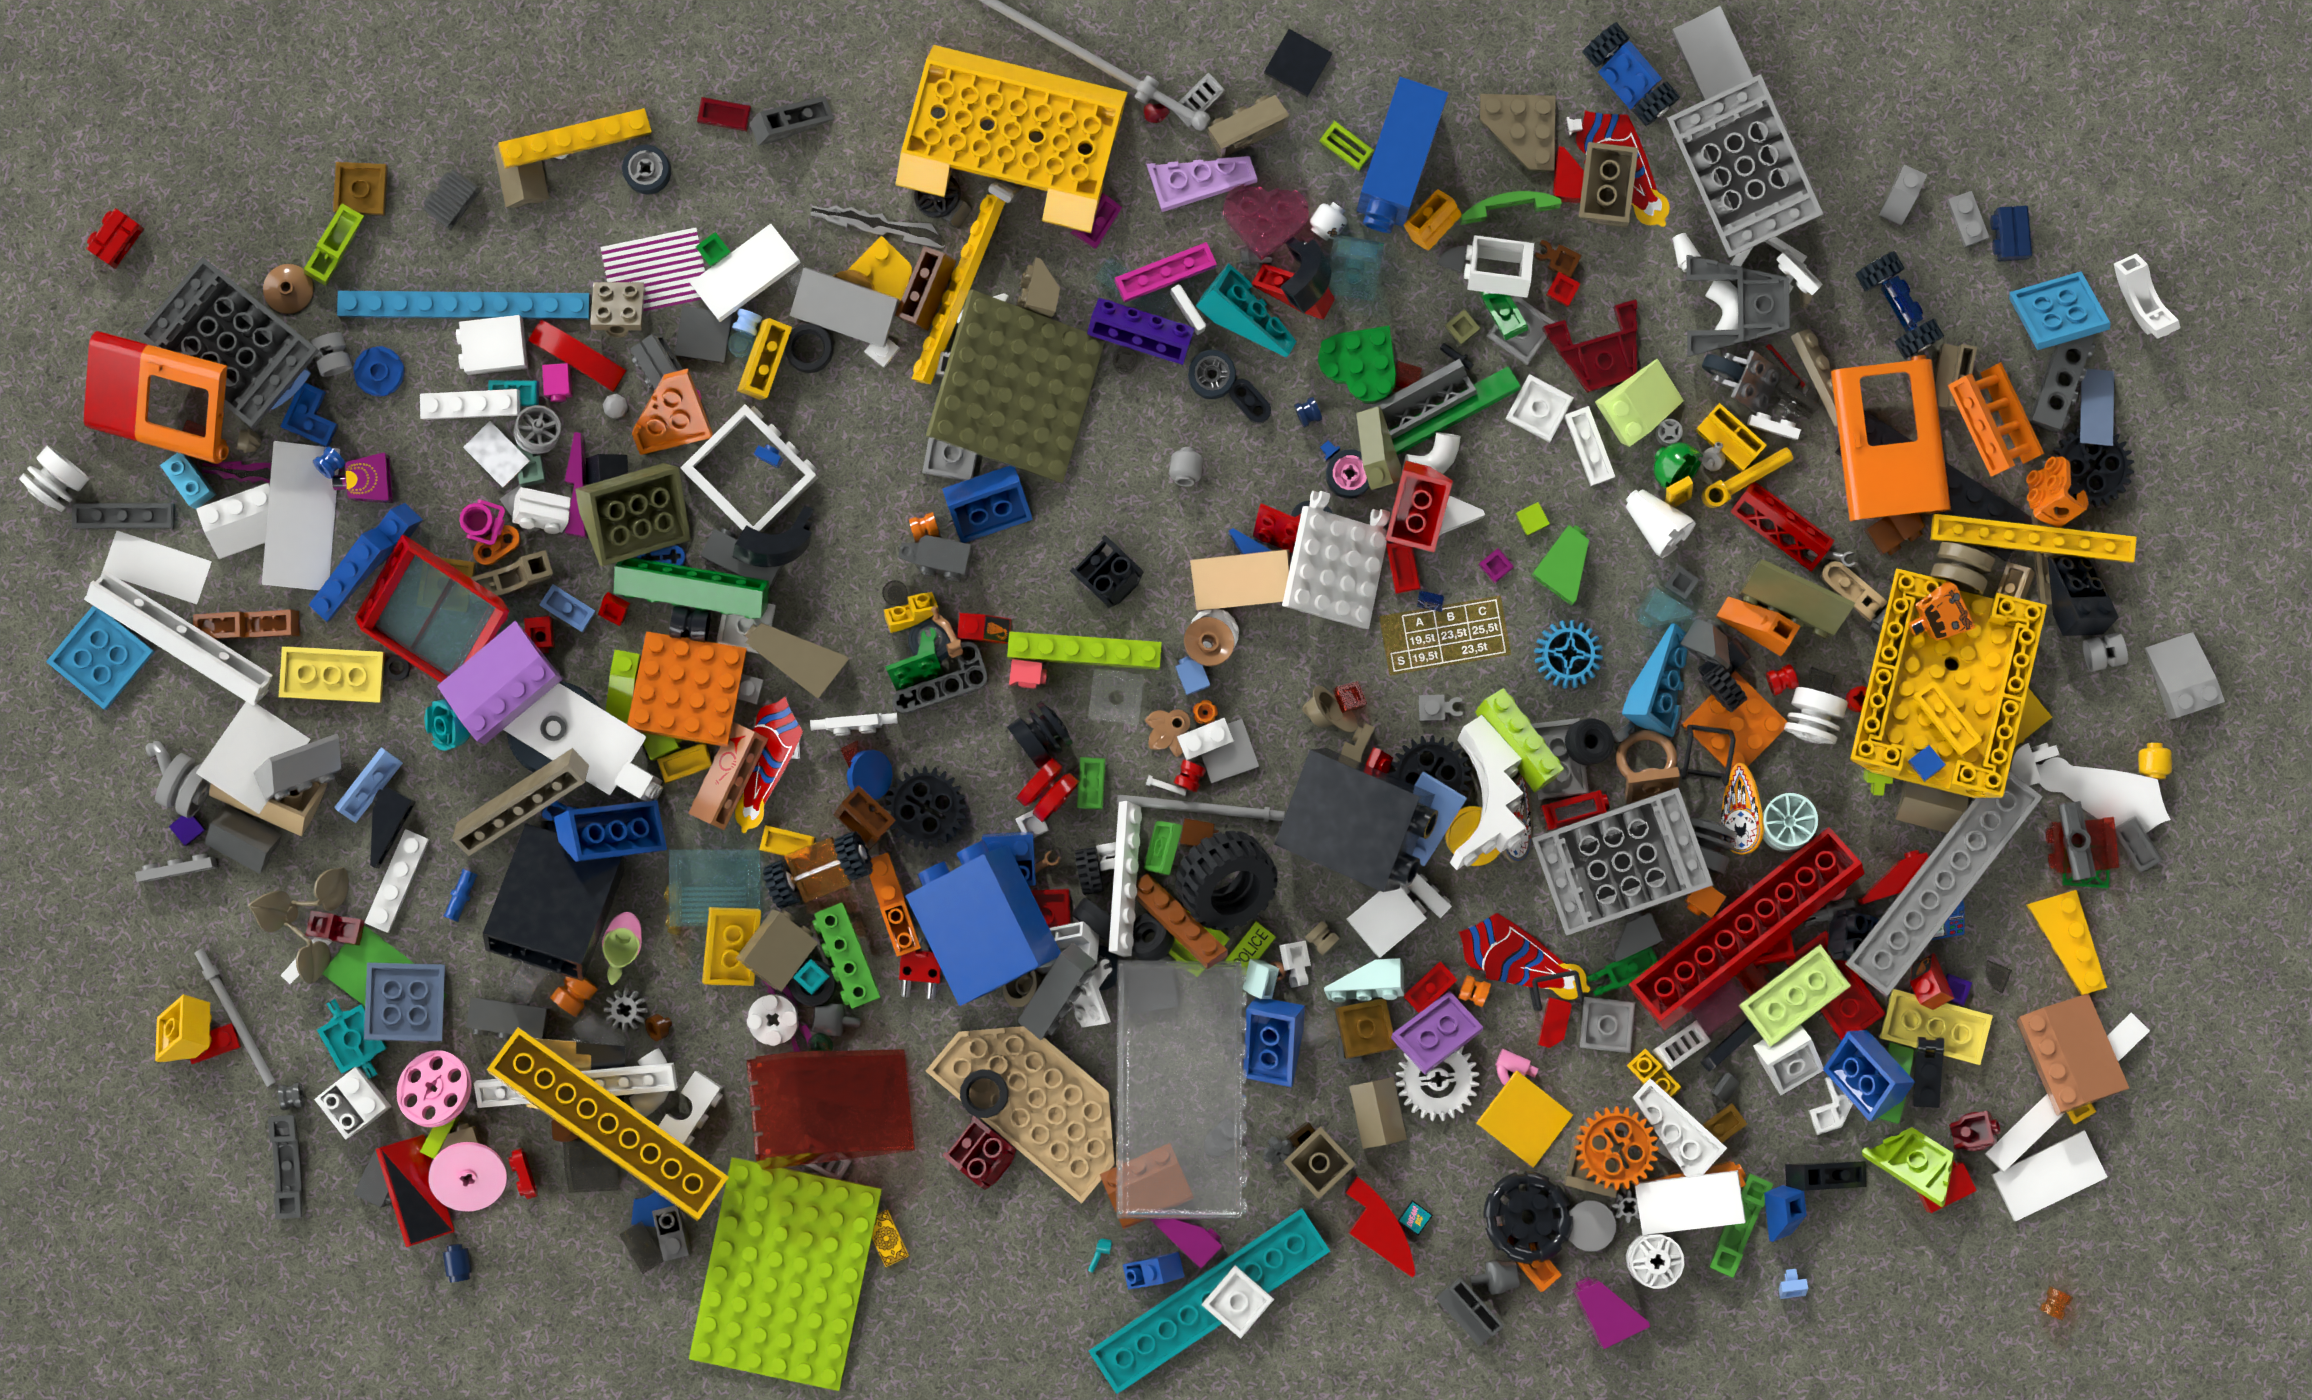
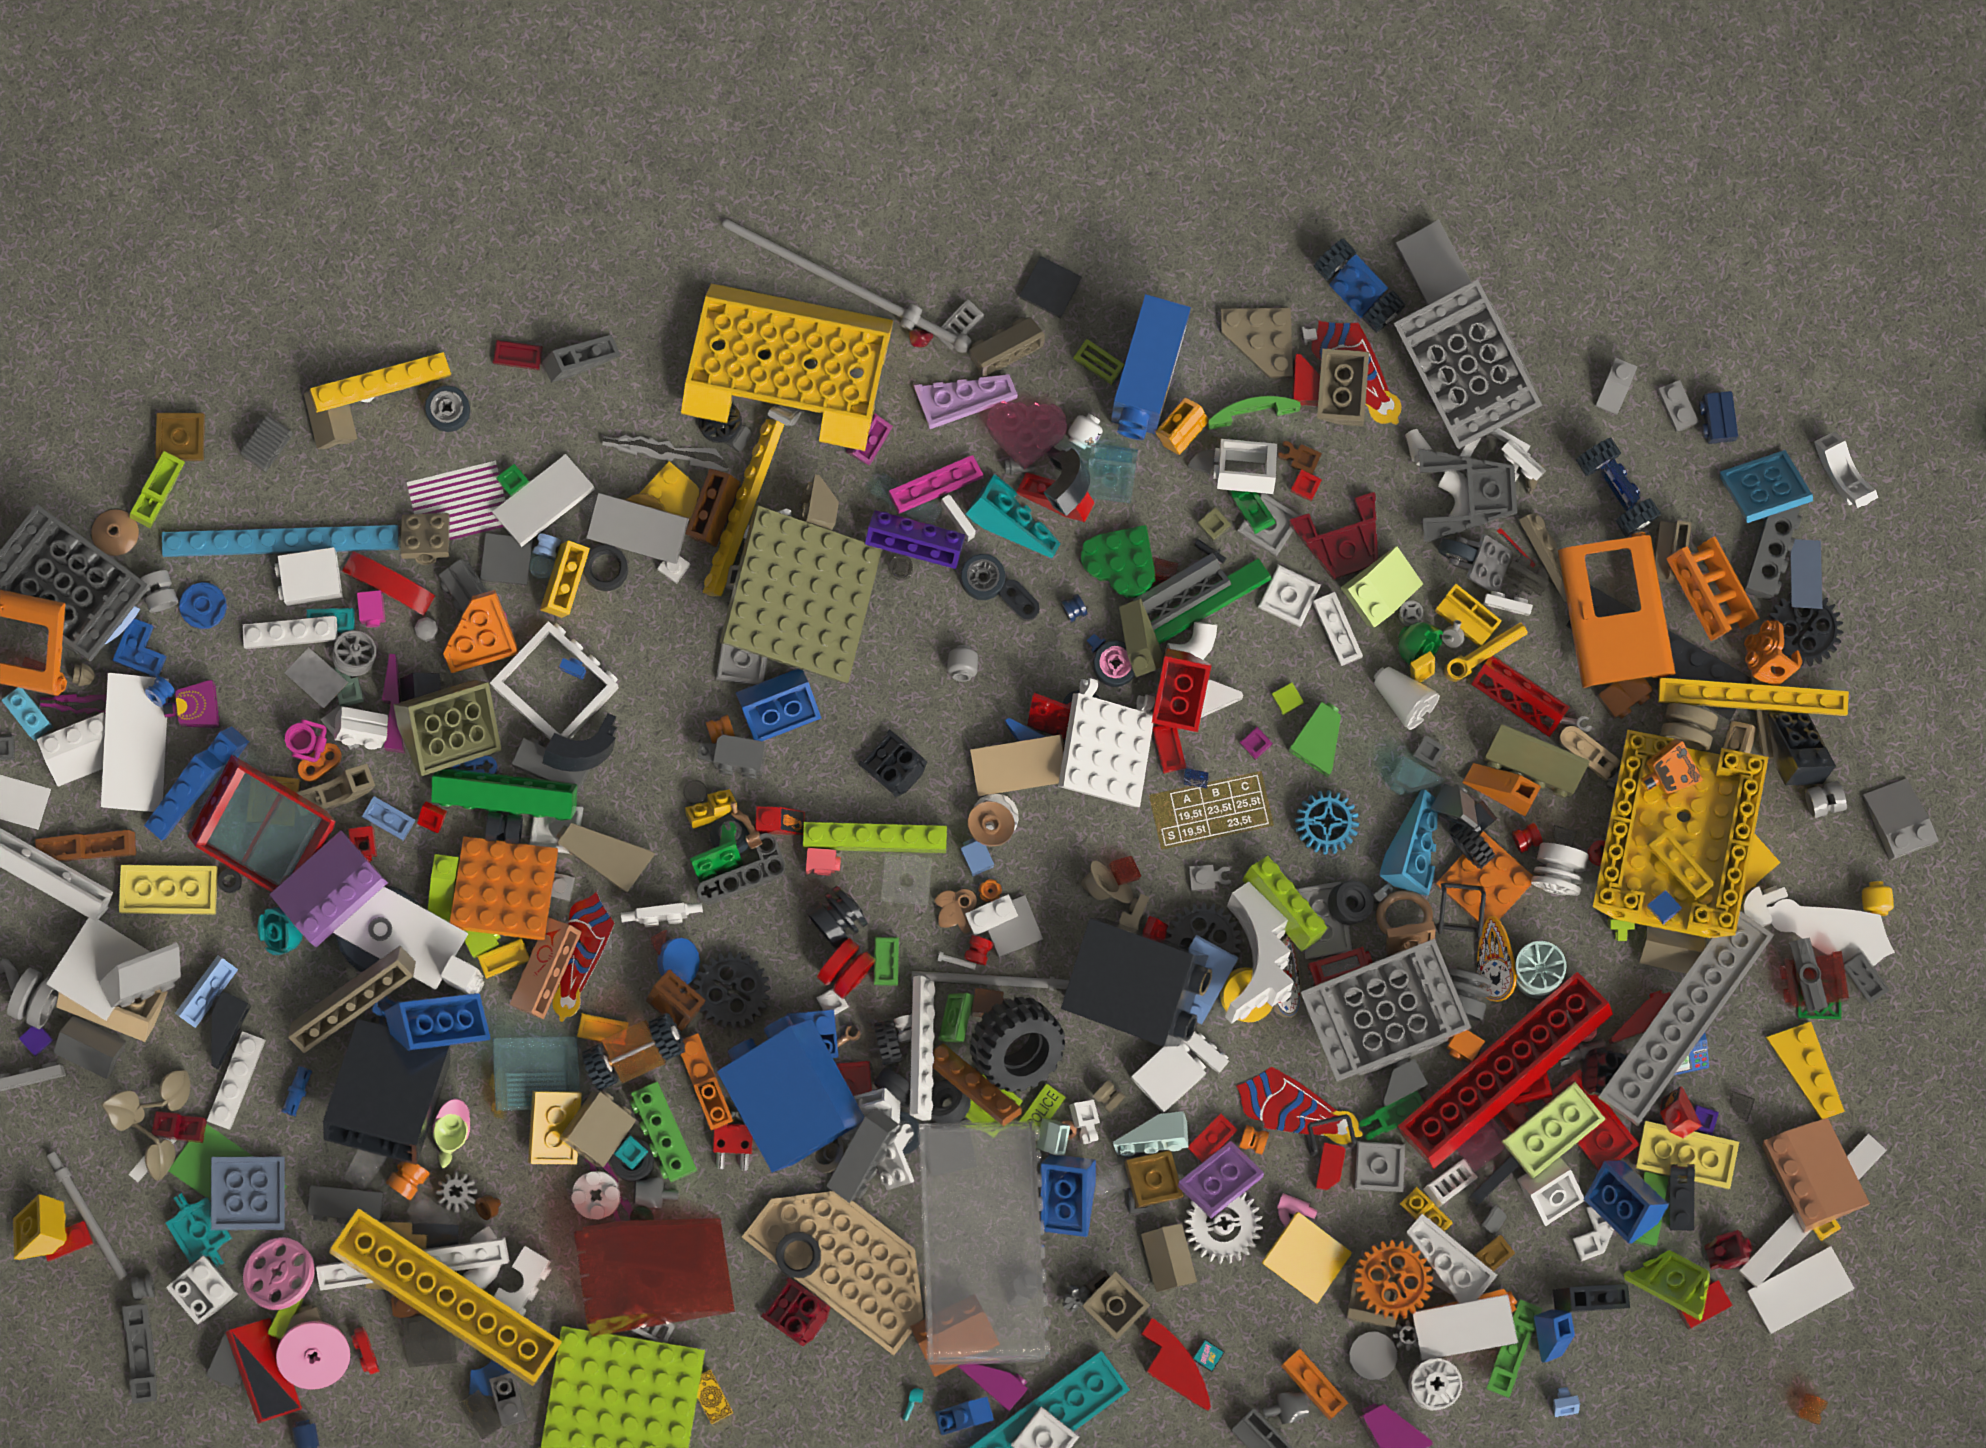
camera: 10 degrees left, 5 degrees down
(1538, 1206) = (1326, 1343): black plate -> none

